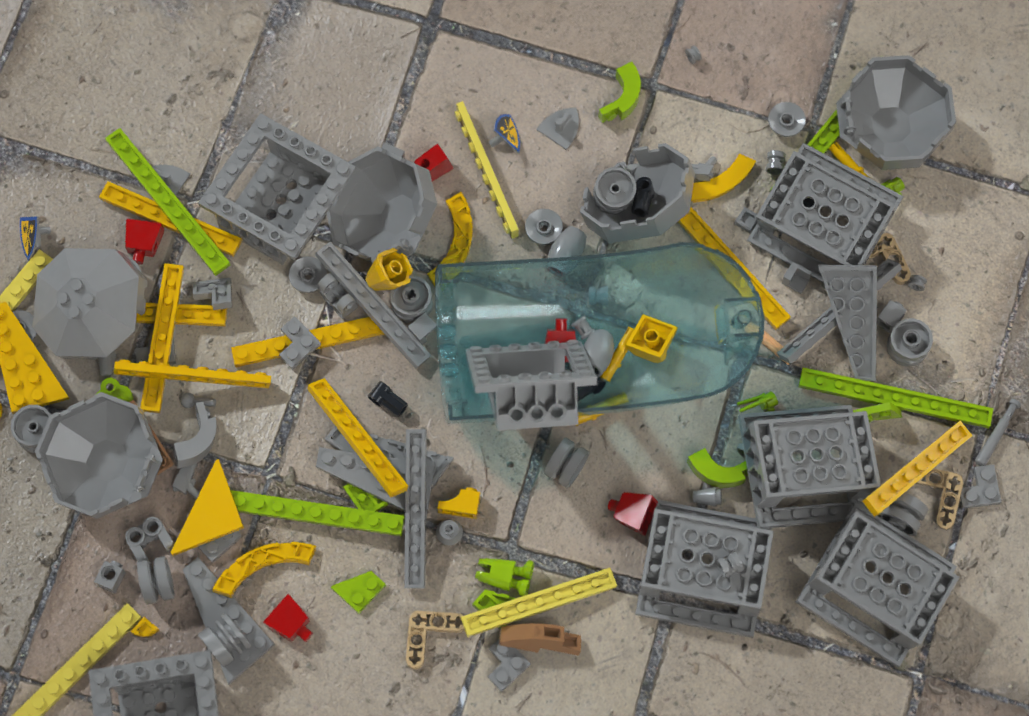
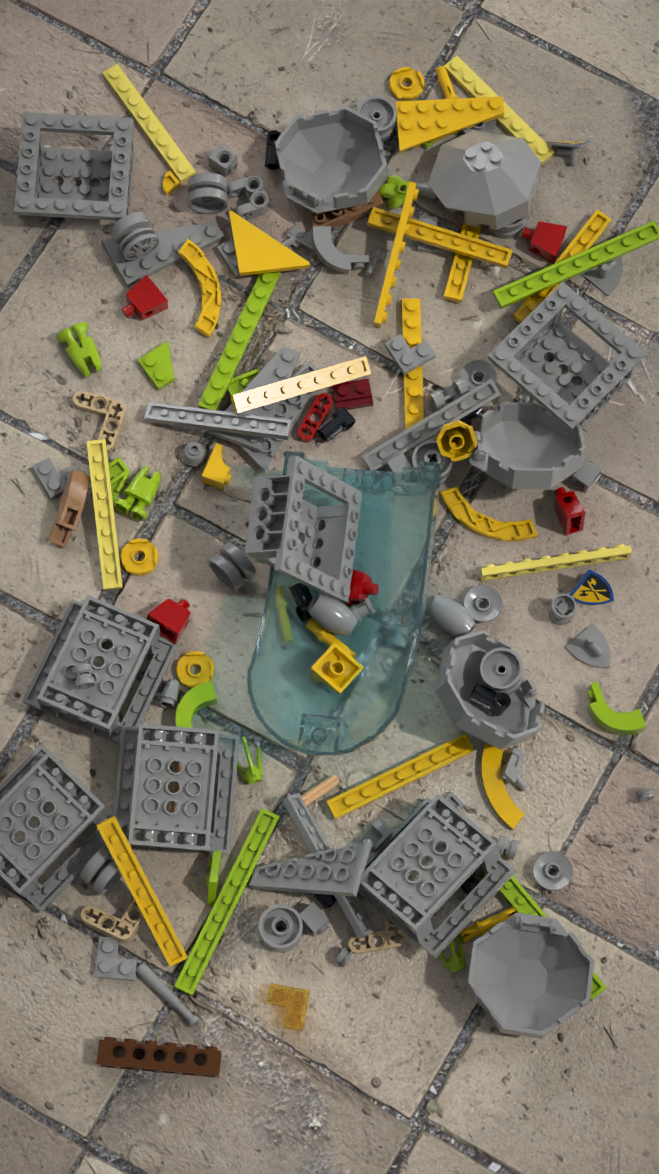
camera: 95 degrees right, 0 degrees up
(90, 527) = (271, 160): none -> black piece
(219, 290) = (478, 295): light grey plate -> none
(351, 390) = (353, 394): none -> dark red plate
(360, 670) = (80, 354): none -> lime piece
(379, 415) = (315, 410): none -> red beam
(533, 154) = (562, 609): none -> light grey wheel
(569, 549) = (139, 568): none -> yellow tile
(680, 490) = (190, 659): none -> yellow tile
(971, 317) = (295, 1002): none -> clear yellow plate

